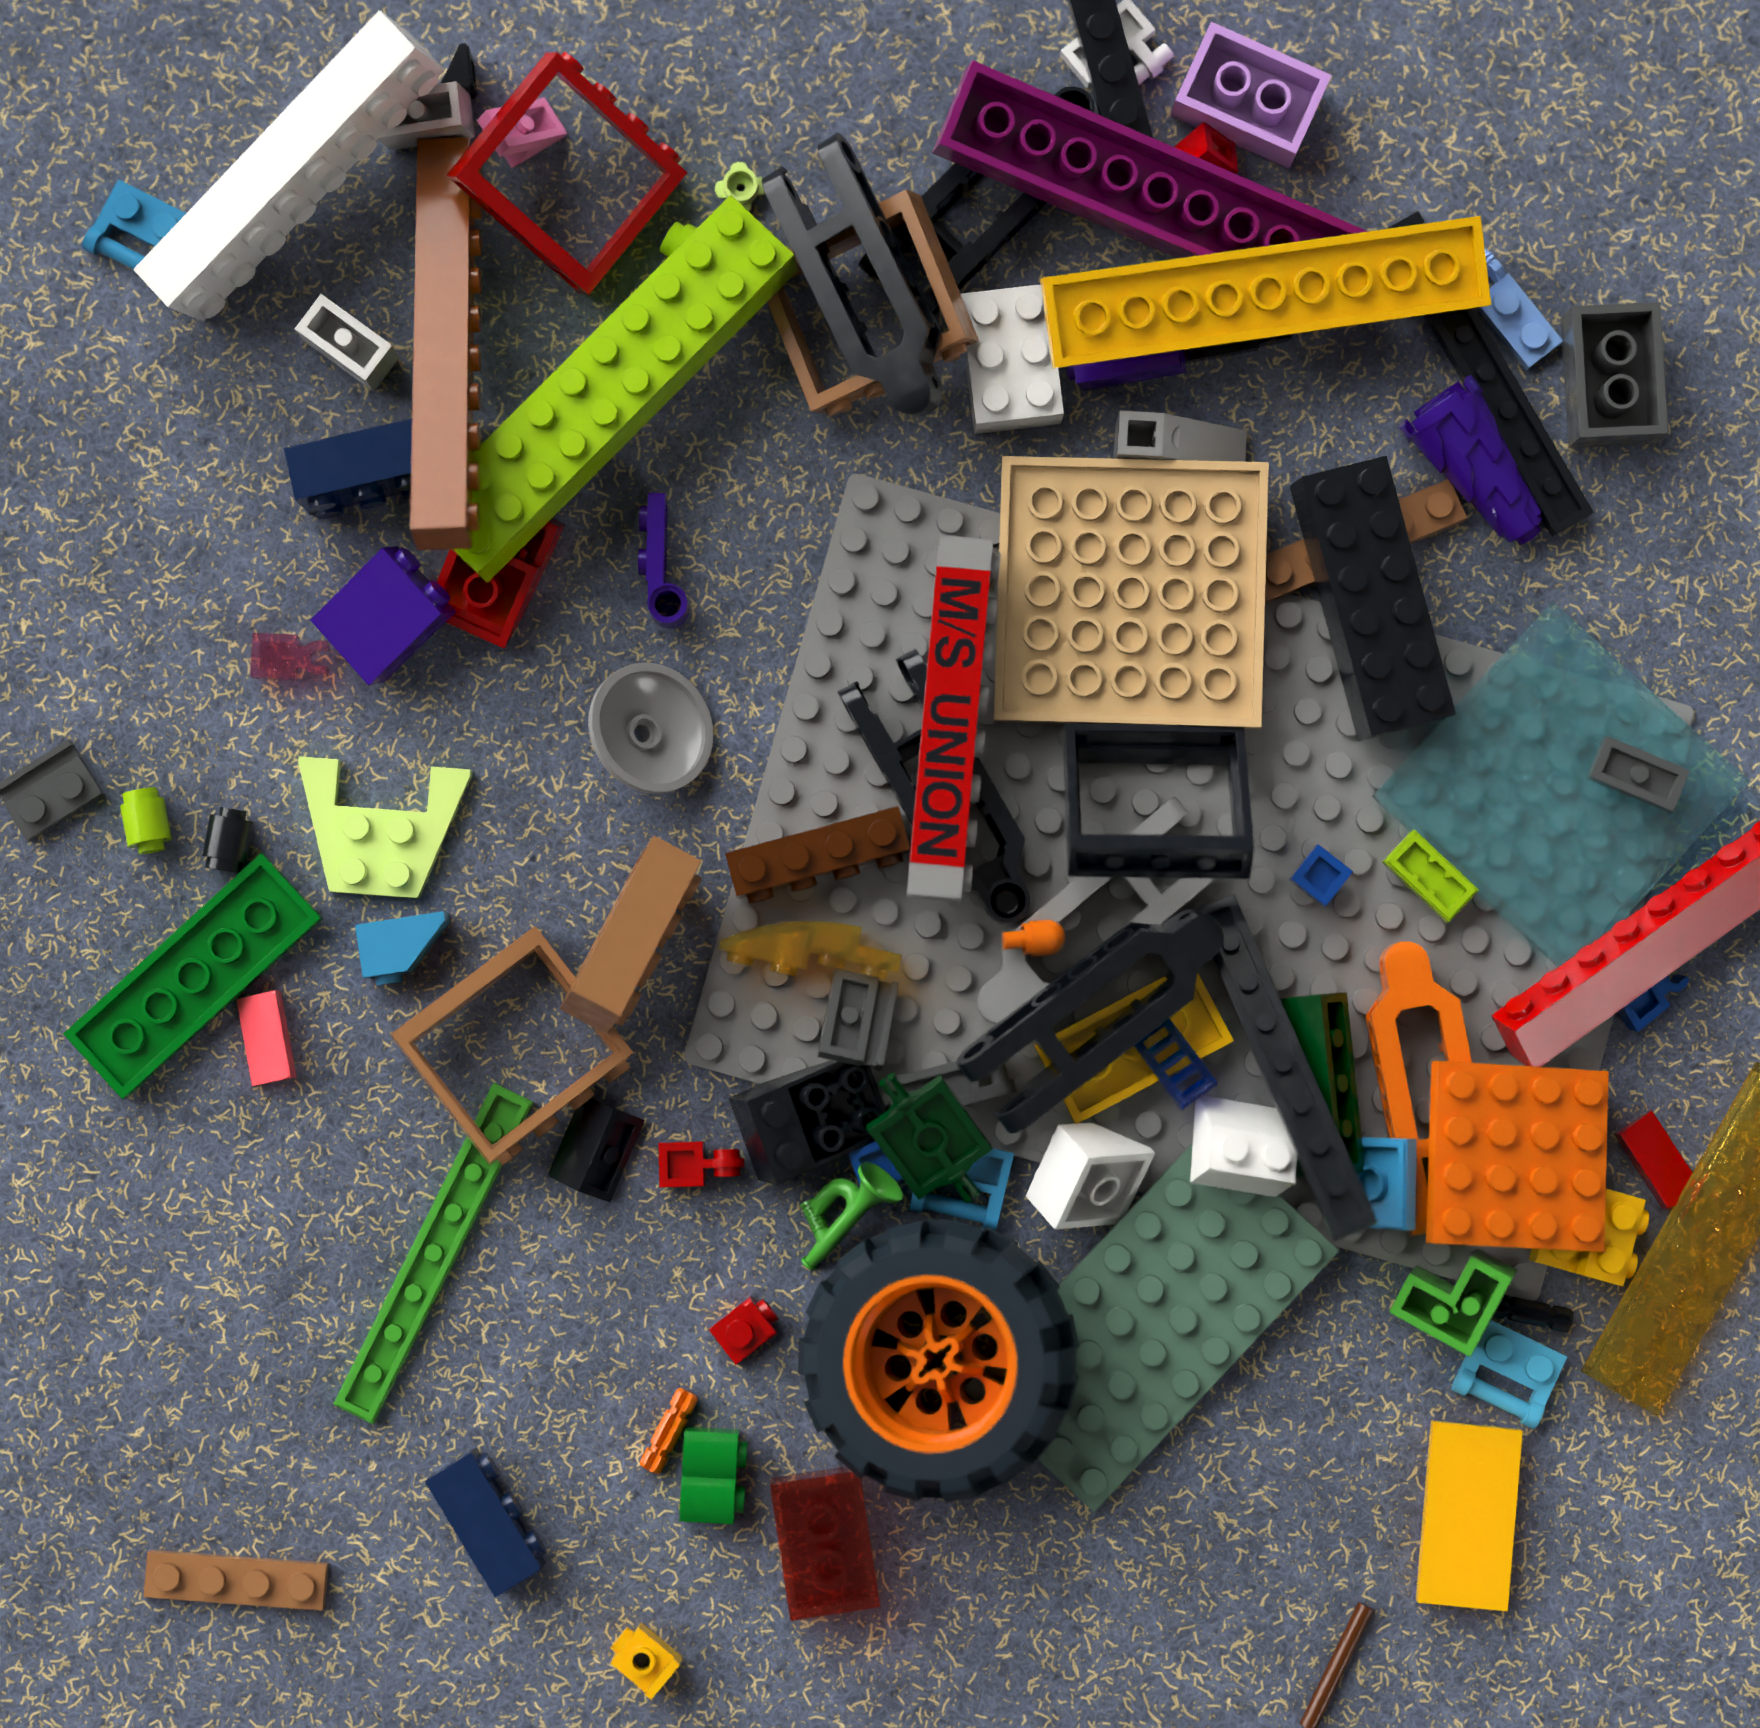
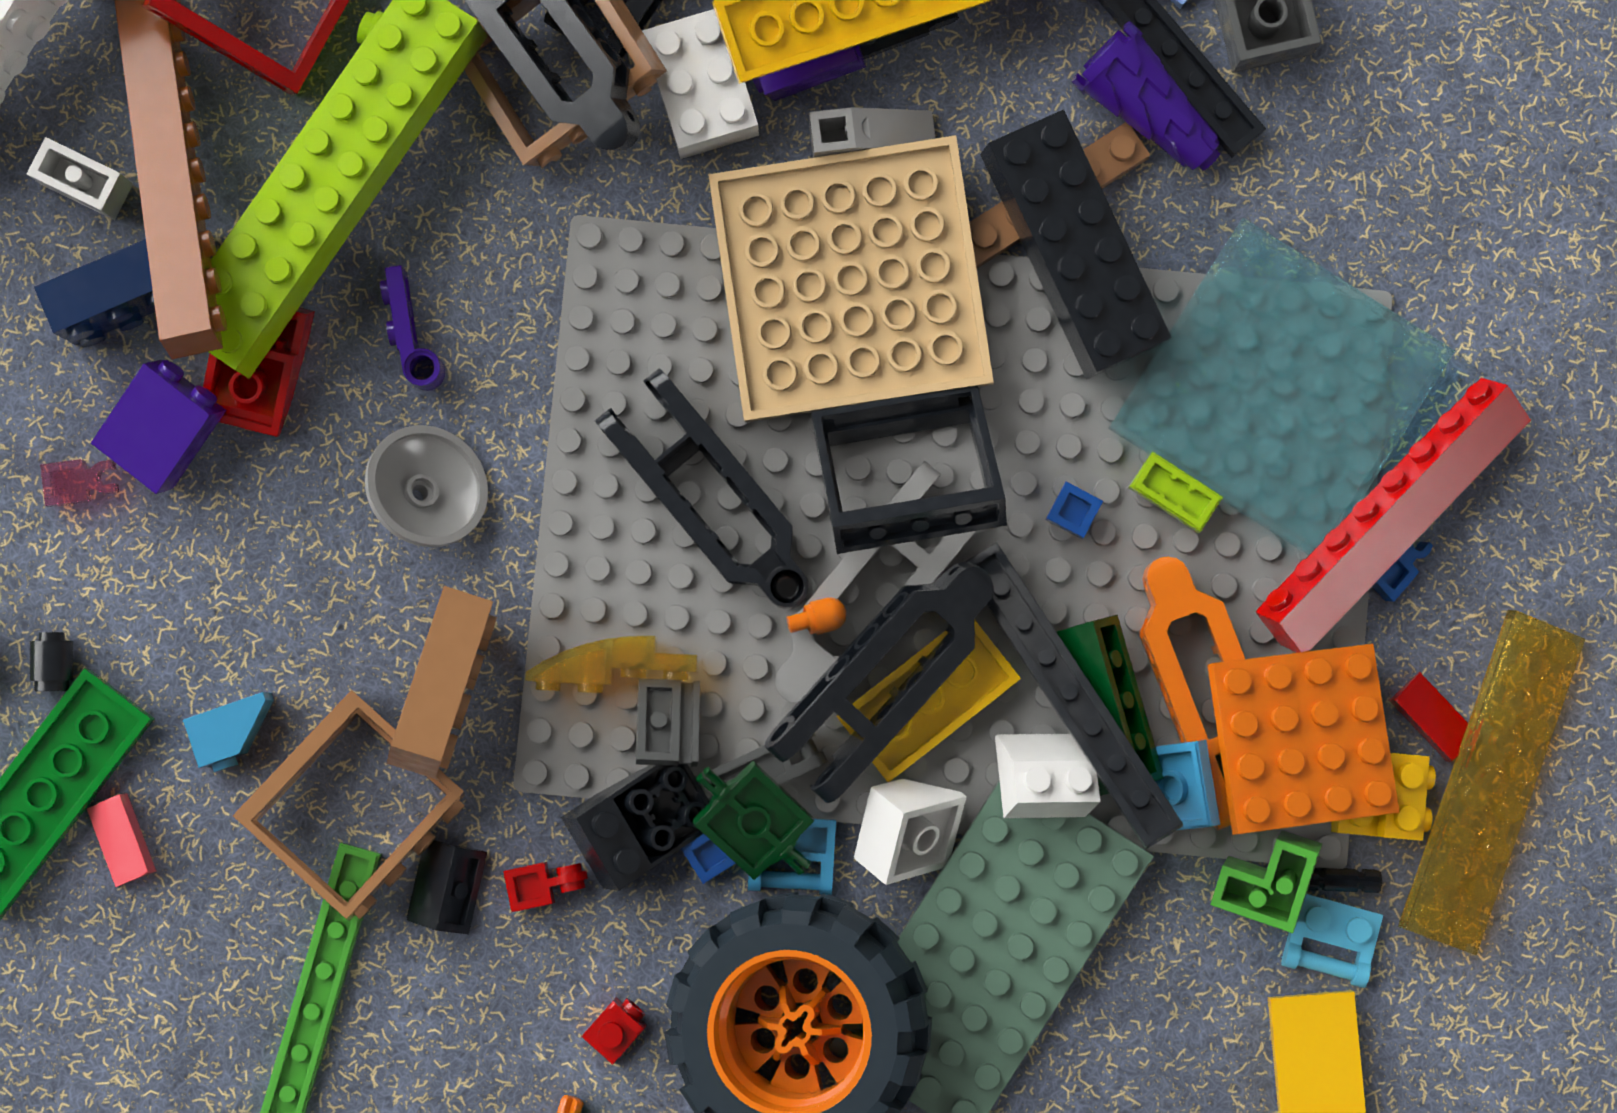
camera: 10 degrees left, 0 degrees up
(379, 848) = (196, 643): yellowish green wing -> none
(818, 853) = (602, 574): reddish brown brick -> none
(875, 1188) = (712, 876): bright green piece -> none
(950, 718) = (701, 426): brick -> none
(1196, 1065) = (992, 733): clear blue slope -> none
(1638, 774) = (1350, 362): dark grey plate -> none

